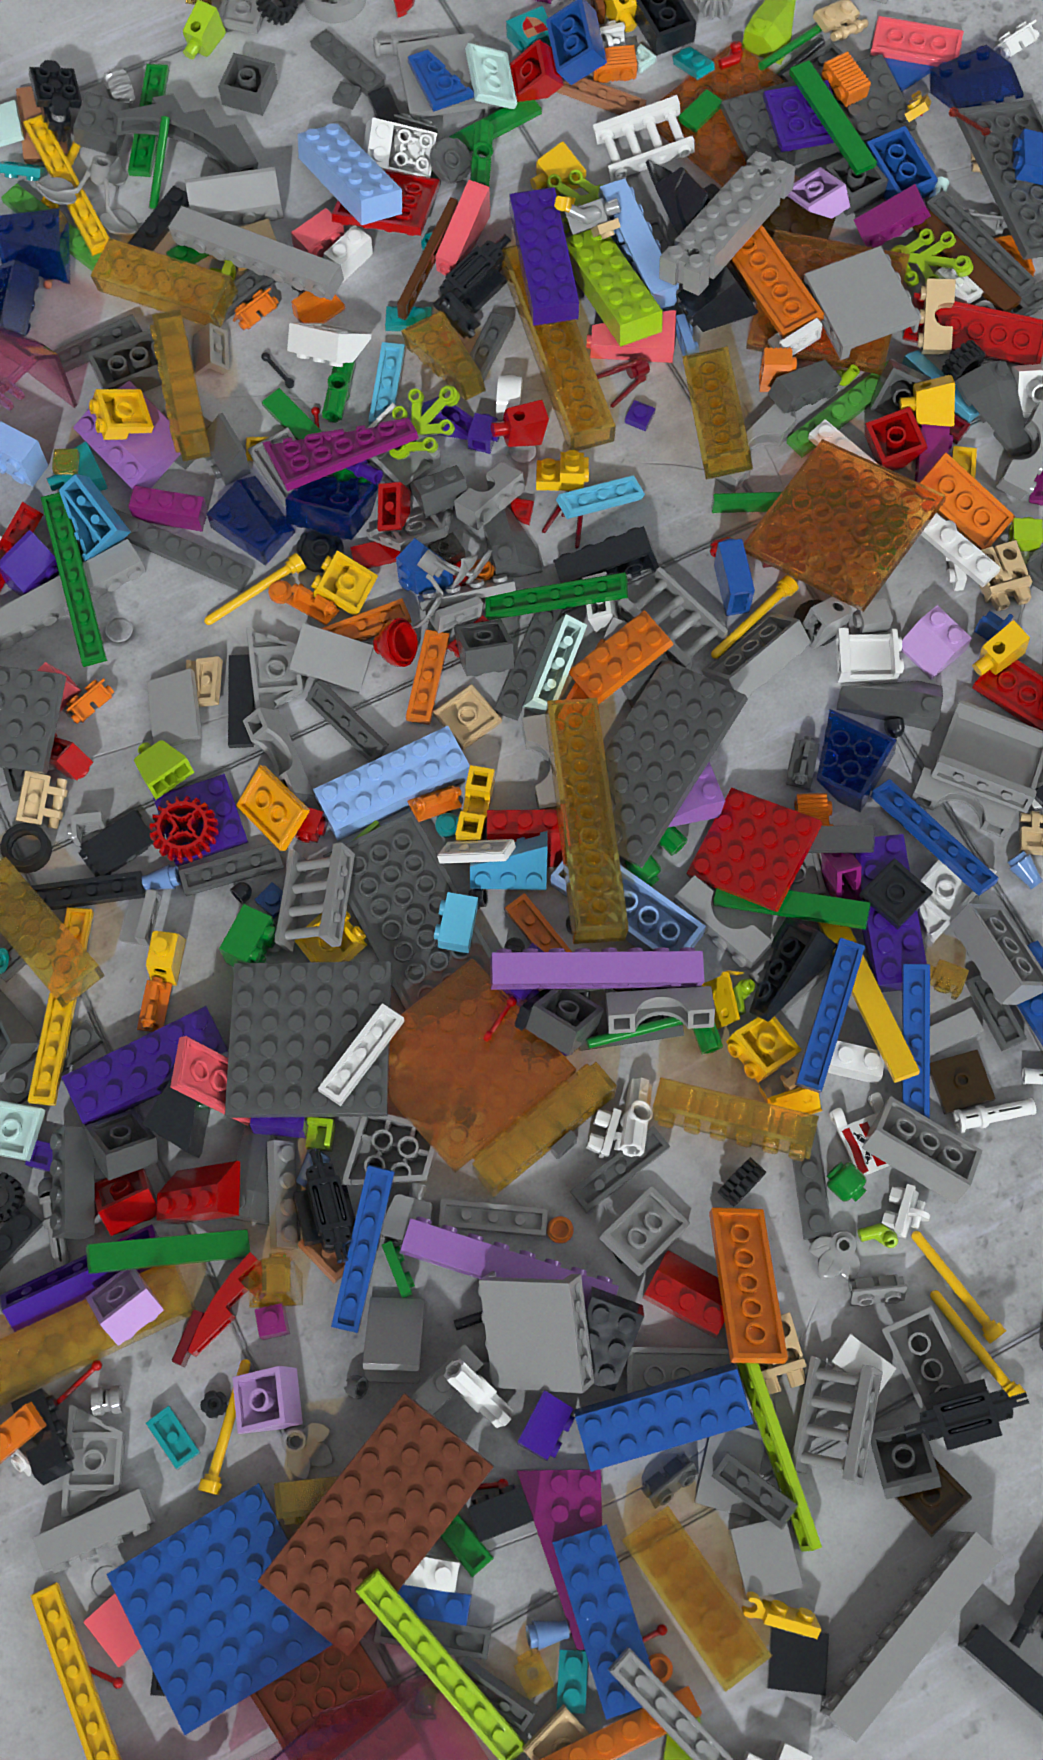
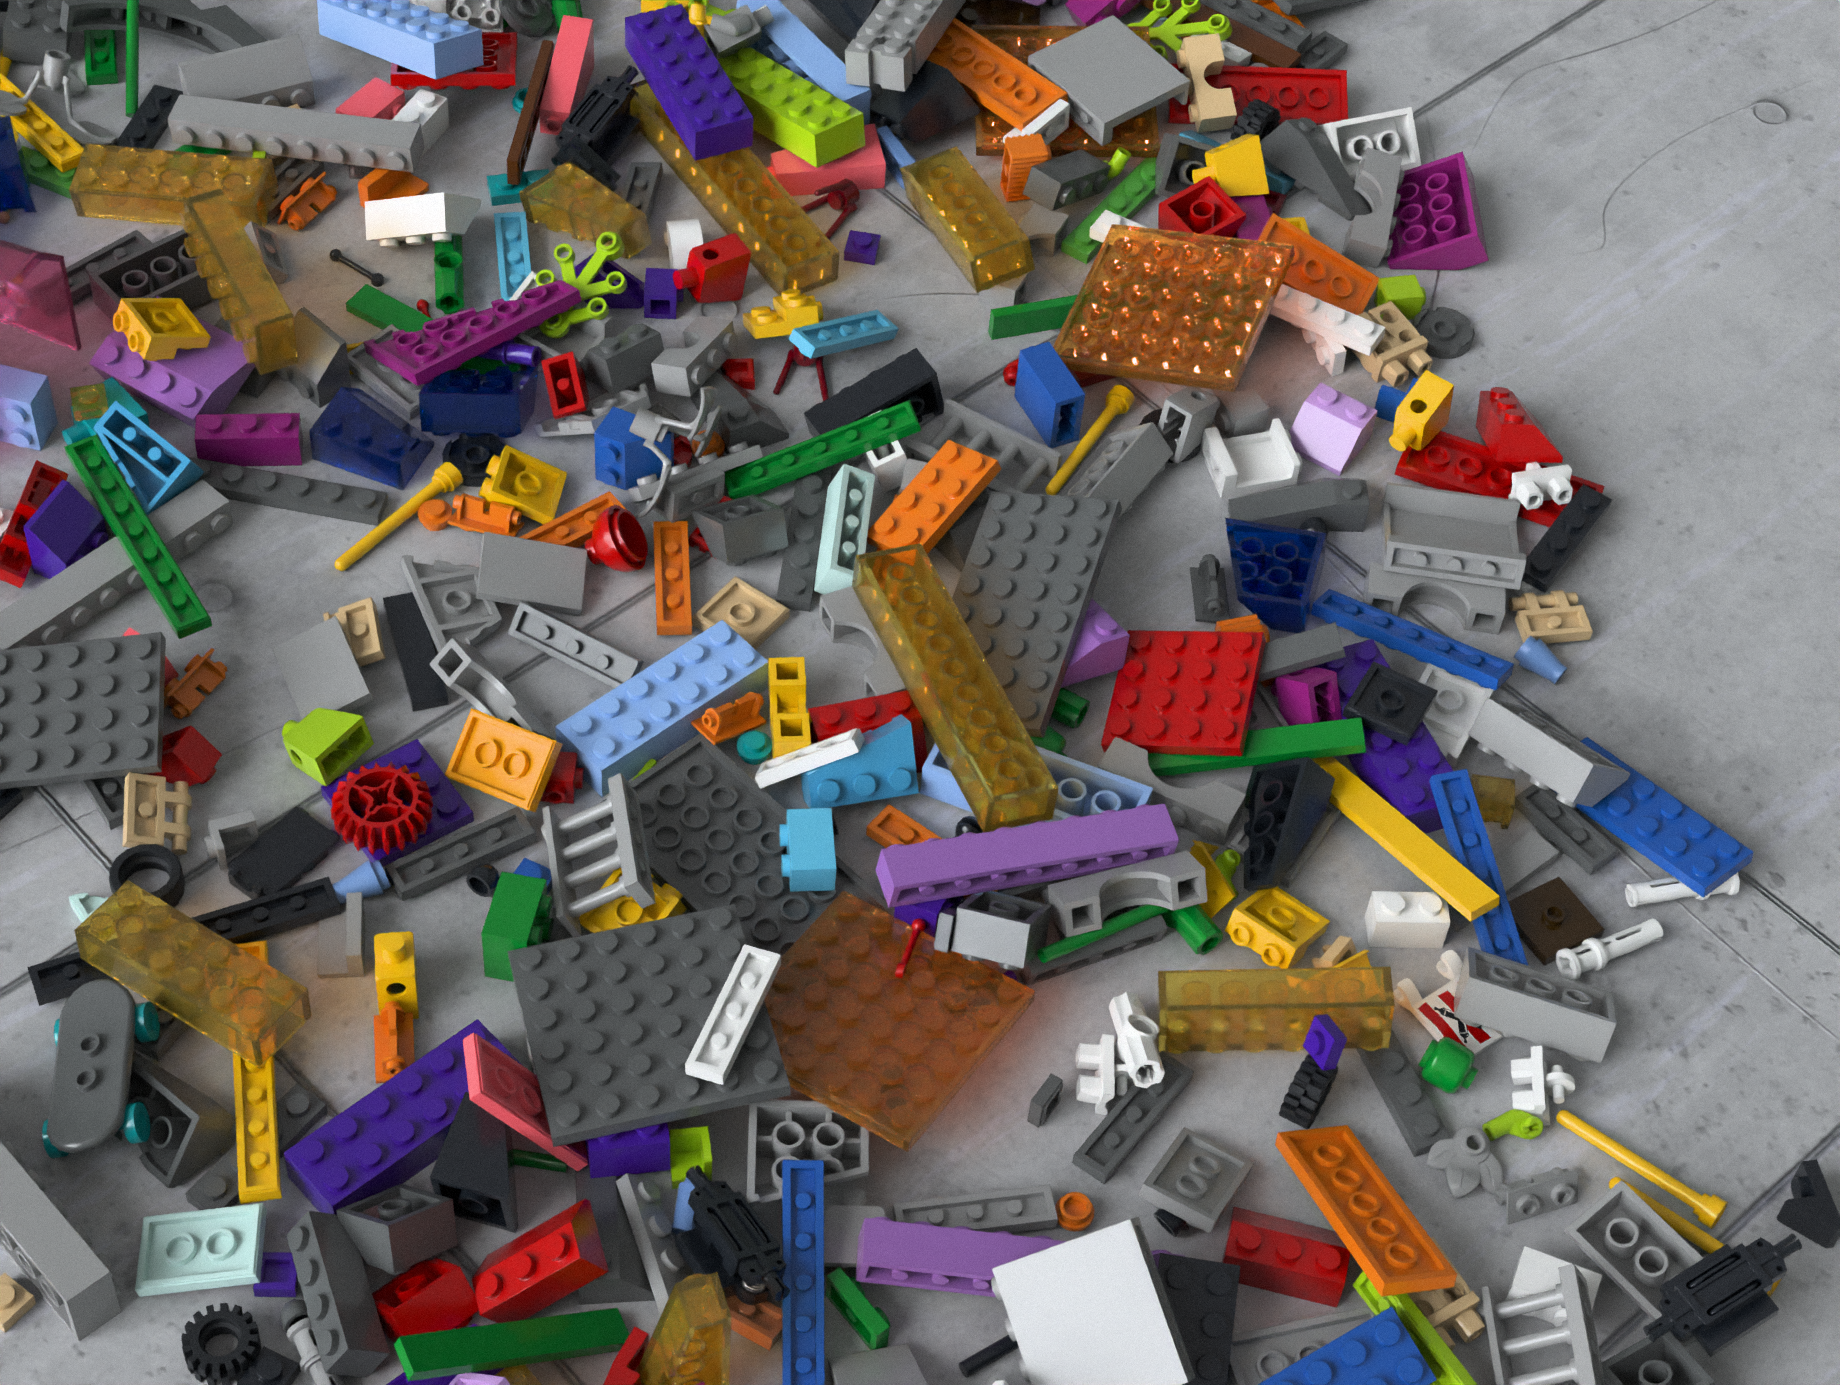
camera: 20 degrees left, 20 degrees down
(373, 554) = (559, 449): red tile -> none
(542, 1129) = (1002, 1087): clear yellow brick -> none
(606, 229) = (759, 42): tan plate -> none
(757, 1159) = (1325, 1042): none -> dark purple plate
(830, 1015) = (1356, 861): blue plate -> none

